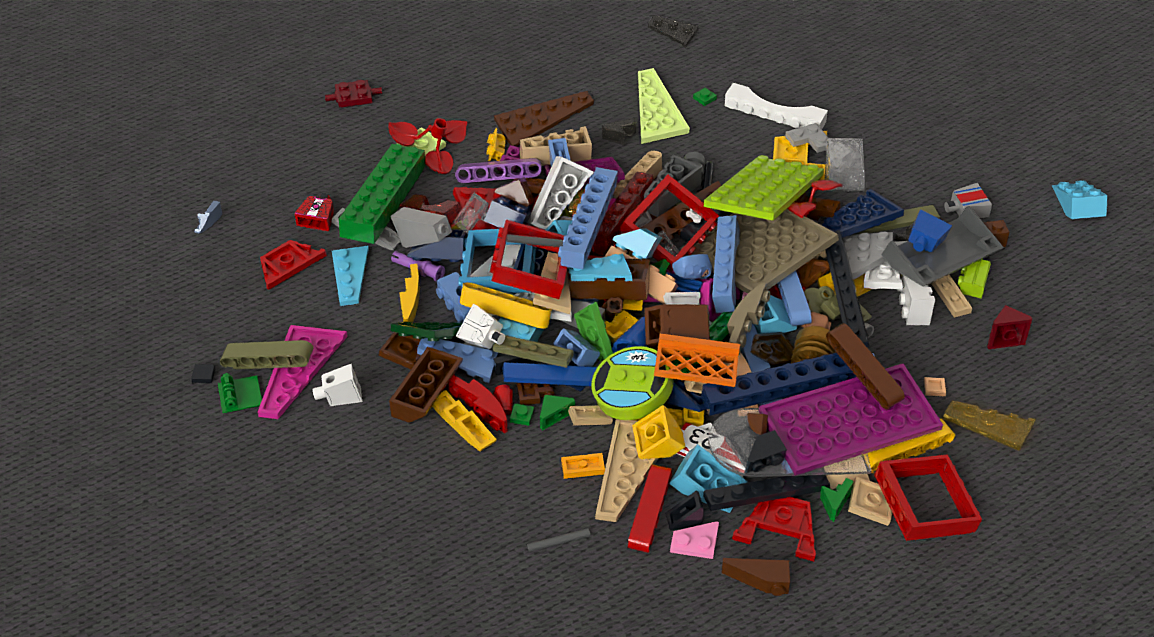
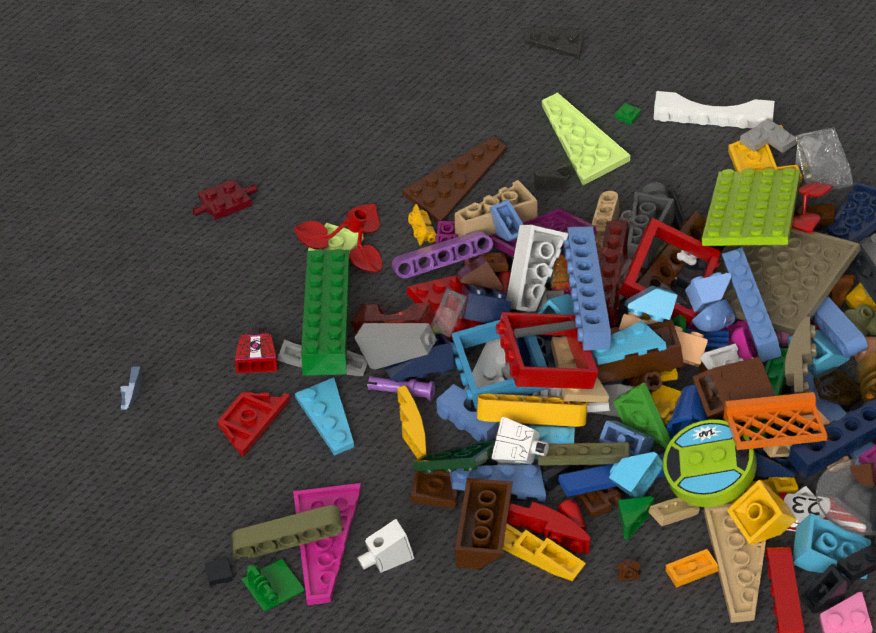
camera: 15 degrees left, 0 degrees up
(522, 414) = (598, 528): green plate -> none
(529, 450) = (625, 566): none -> reddish brown plate
(567, 376) = (636, 473): none -> medium azure slope
(693, 242) = (707, 291): none -> light blue slope

